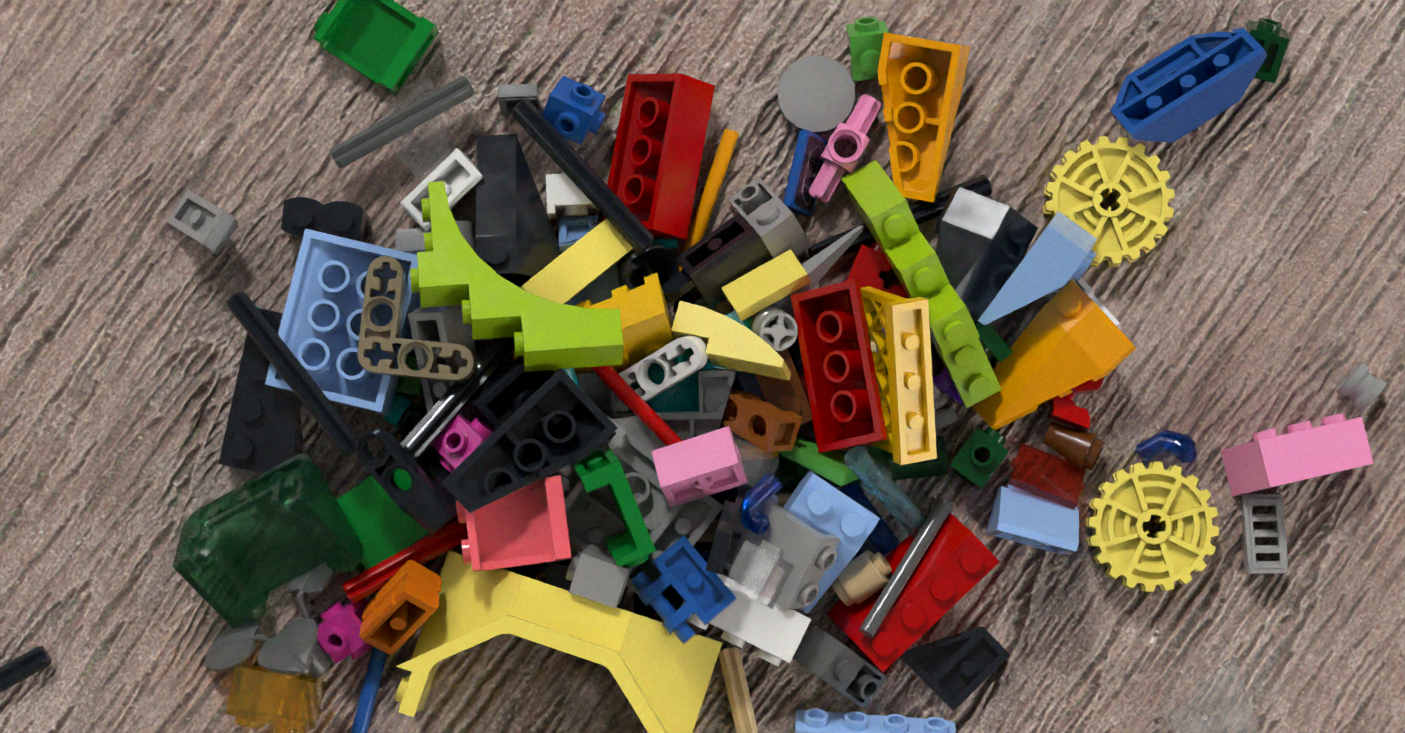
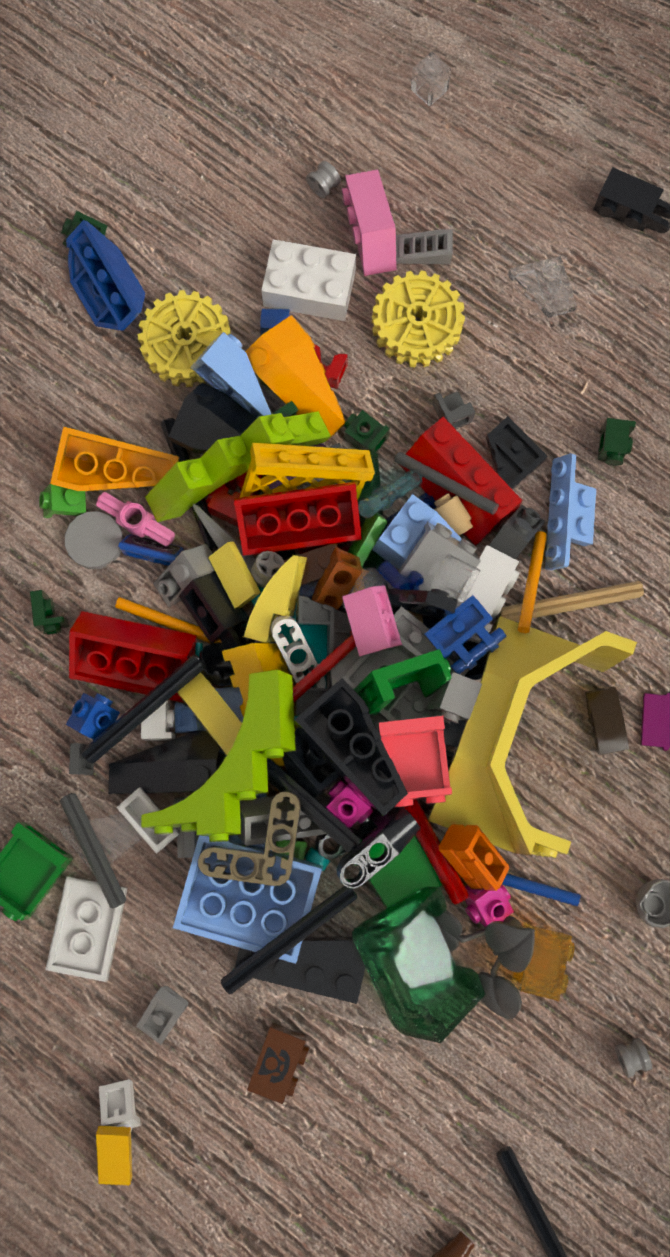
camera: 90 degrees left, 5 degrees down
(35, 172) = (114, 1155): none -> yellow tile
(91, 173) = (118, 1105): none -> white bracket
(147, 368) = (277, 1063): none -> reddish brown brick
(302, 117) = (84, 931): none -> white tile
(332, 218) = (165, 907): black brick -> none
(716, 34) = (42, 610): none -> dark green bracket
(771, 687) = (532, 582): none -> light orange bar
(1019, 579) = (453, 409): none -> dark grey panel
(1034, 521) = (413, 391): light blue slope -> none
(1047, 476) = (380, 385): clear red piece -> none
(1075, 445) = (358, 368): reddish brown cone -> none
(1142, 325) = (271, 318): none -> blue slope
(1170, 442) = (360, 299): clear blue arm -> none
(1202, 371) = (309, 280): none -> white brick

